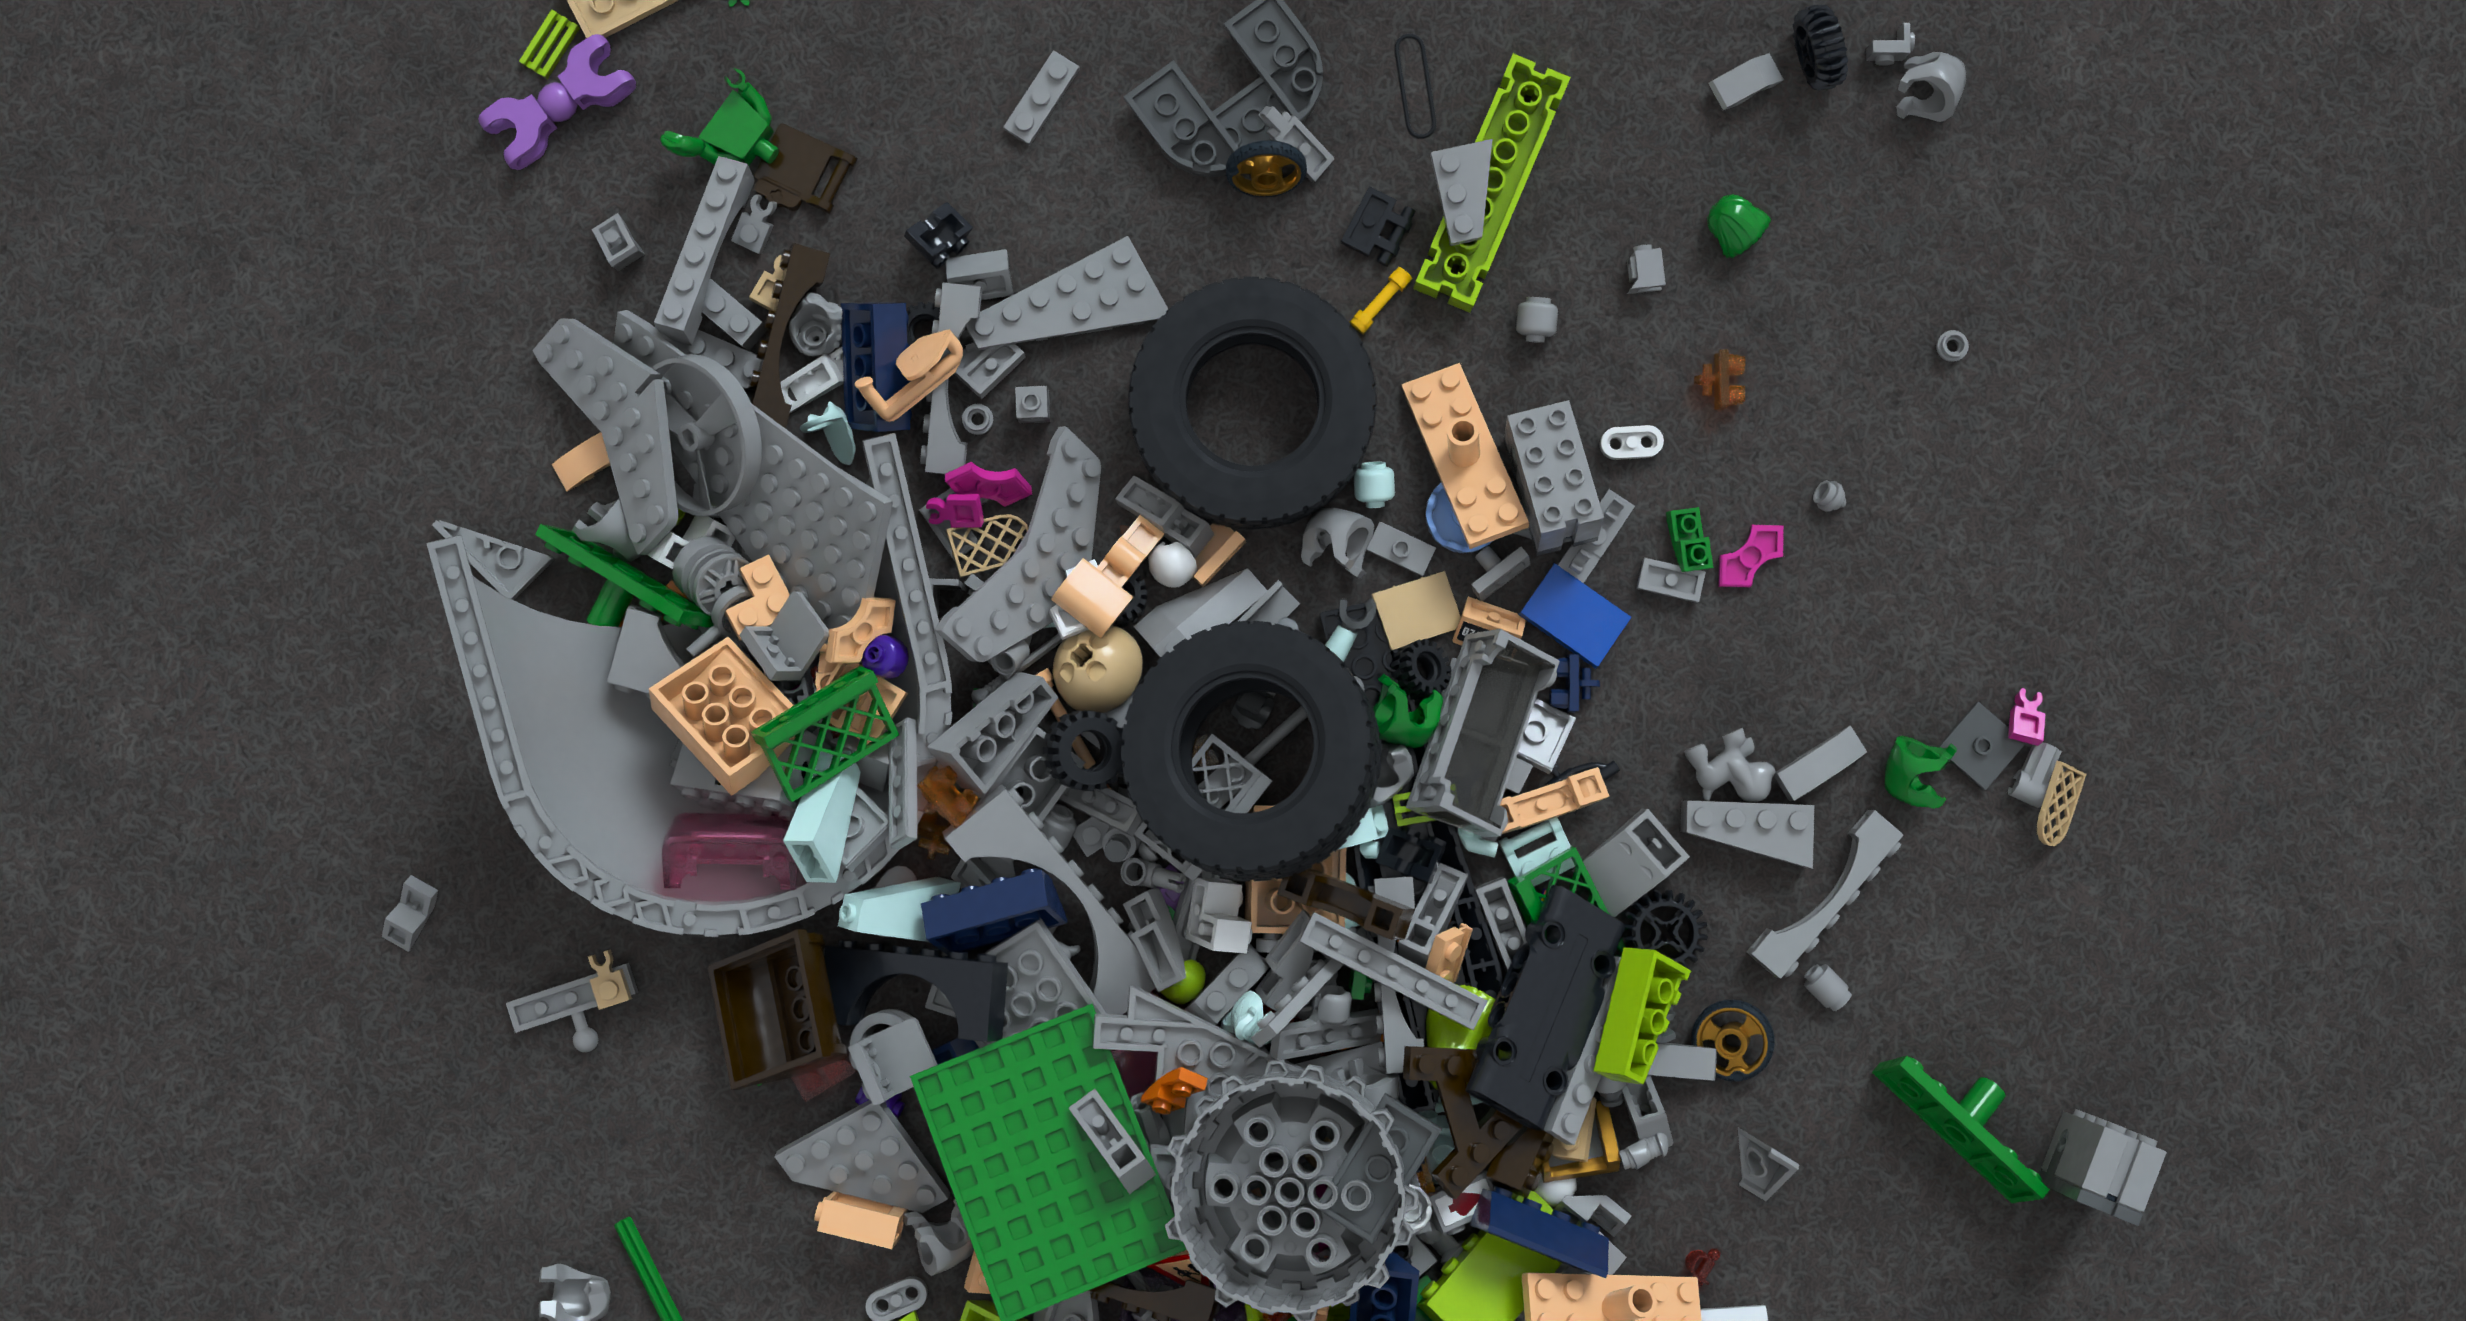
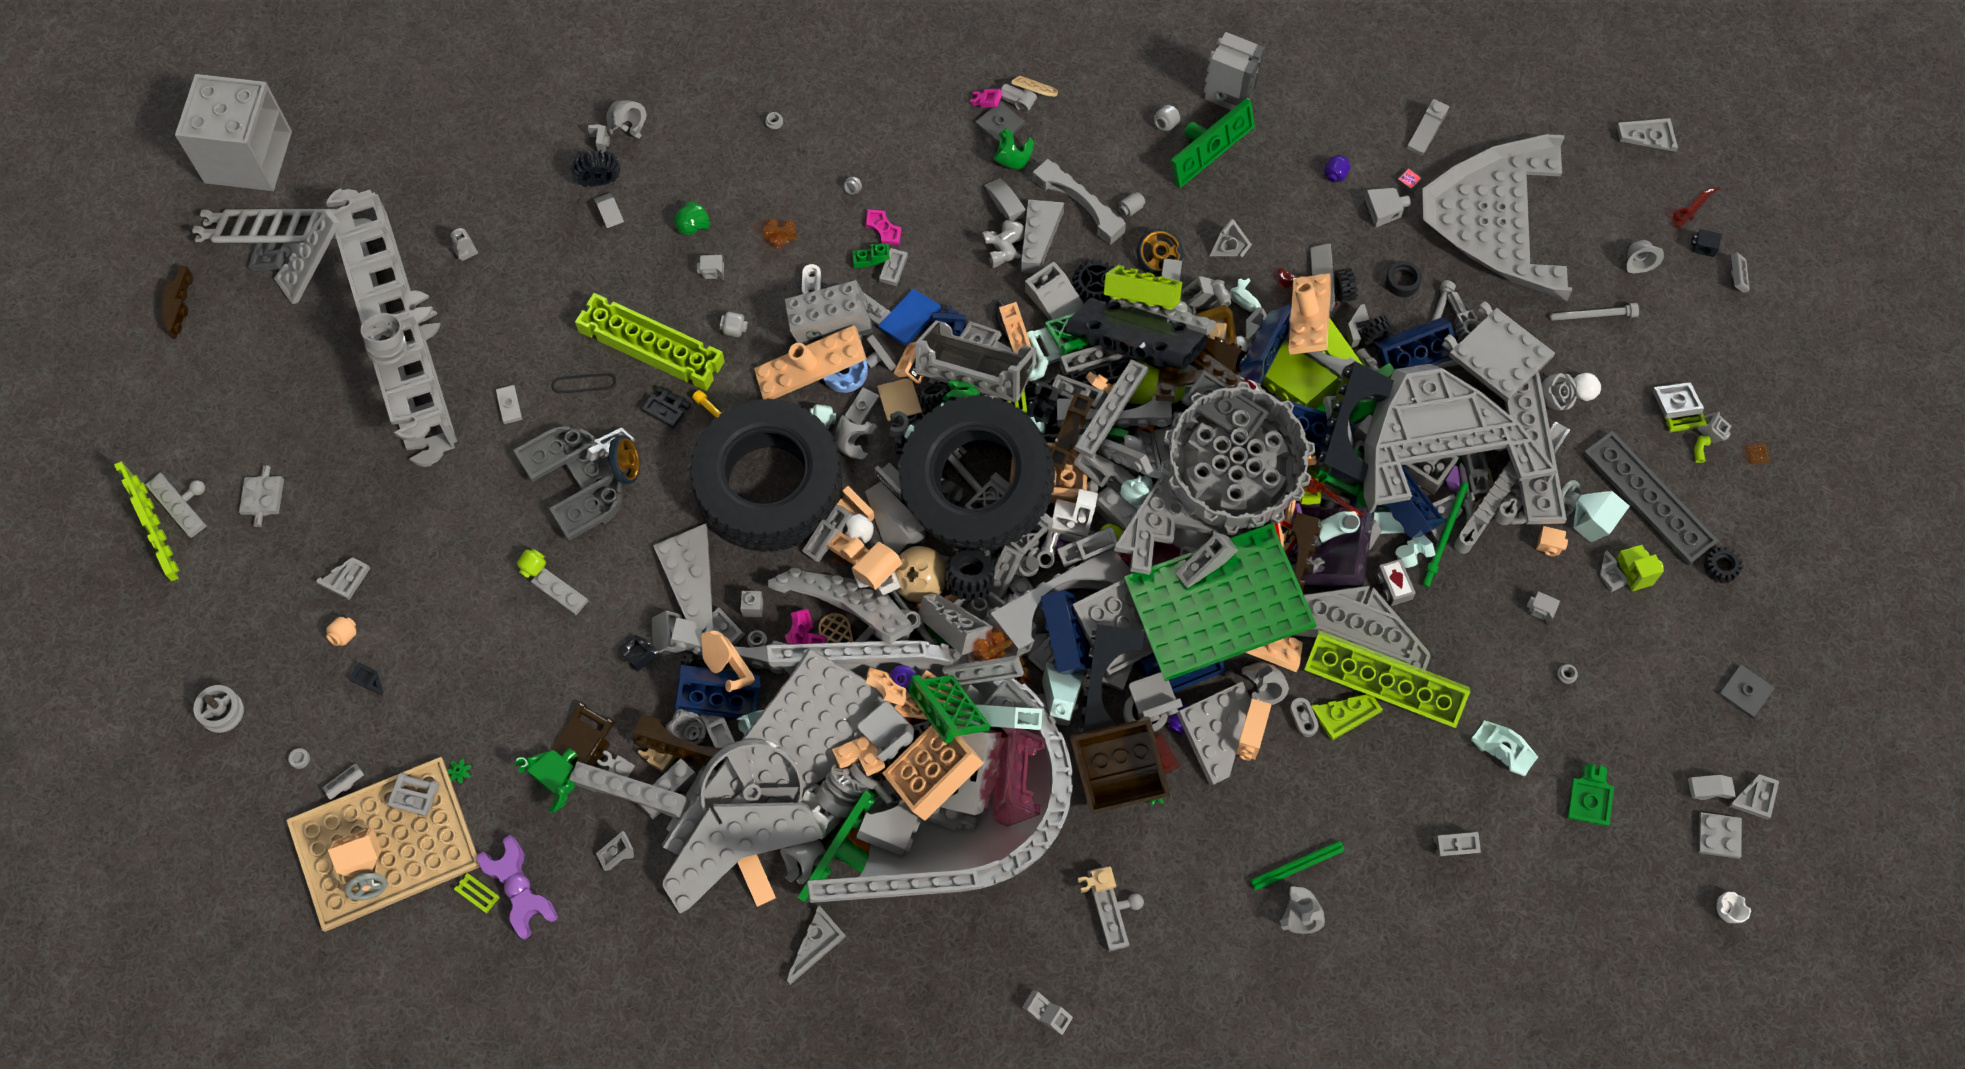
camera: 90 degrees left, 20 degrees down
(1083, 46) = (531, 563): none -> lime head
(1172, 1089) = (1178, 532): orange slope -> none
(1462, 188) = (652, 351): light grey wing -> none
(1650, 1187) = (1243, 297): none -> light aqua piece
(2012, 1044) = (1167, 118): none -> light grey head

